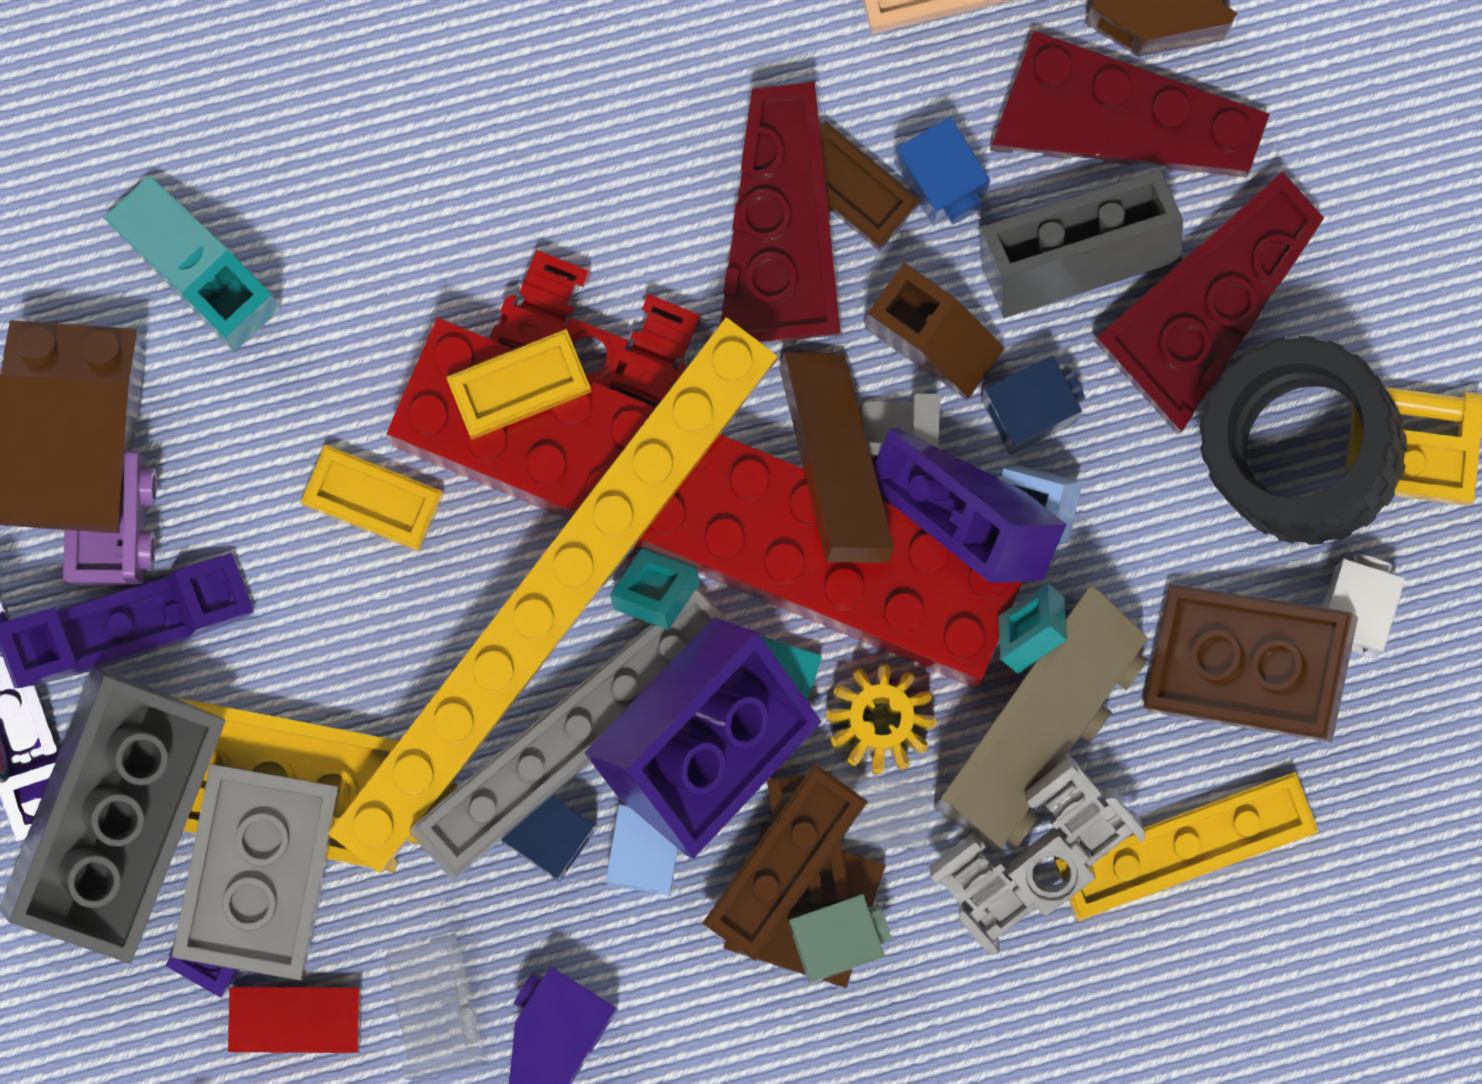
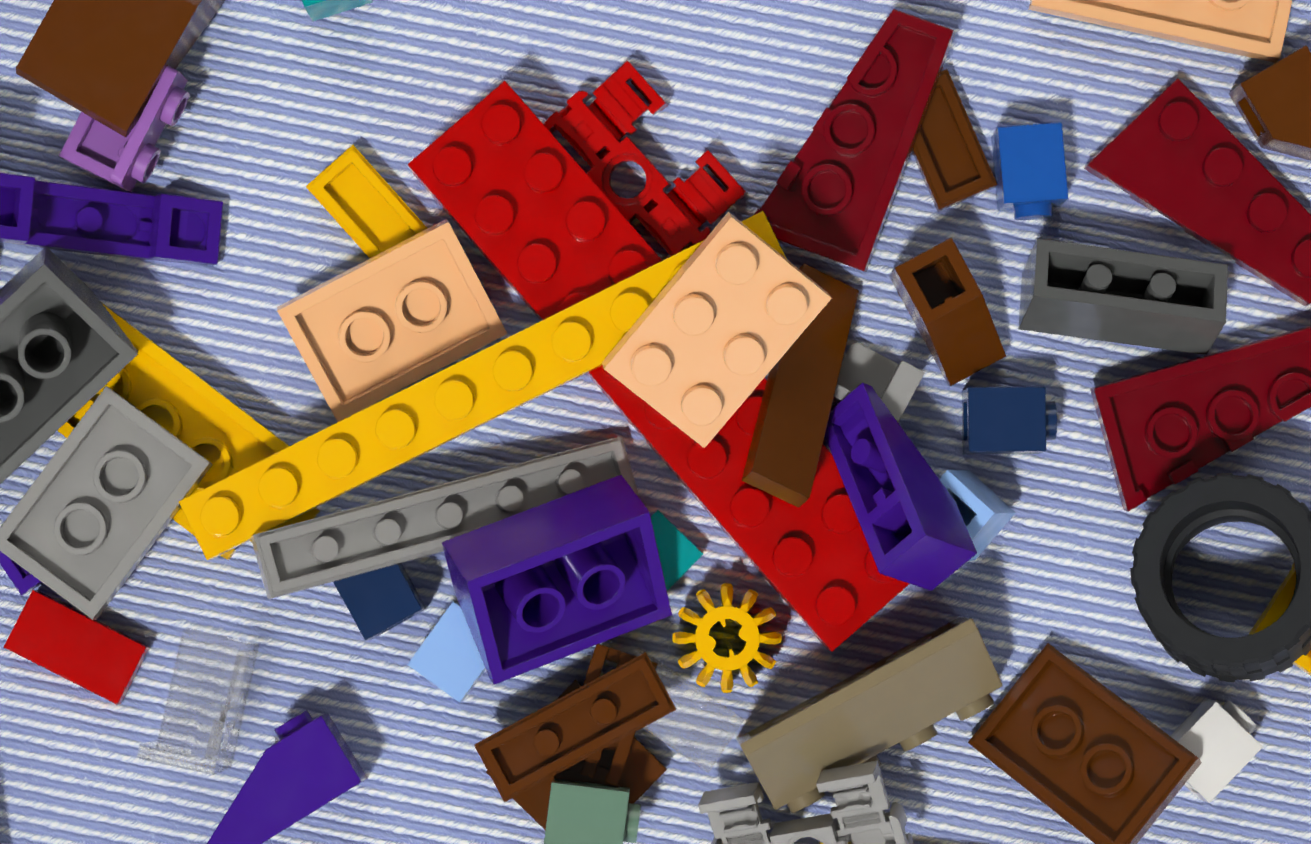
camera: 30 degrees right, 5 degrees up
(438, 582) = (391, 320): none -> light nougat plate
(519, 384) = (546, 179): yellow tile -> none
(655, 588) = (582, 420): teal tile -> none
(737, 441) = (716, 330): none -> light nougat plate
(1032, 628) = (900, 630): teal tile -> none

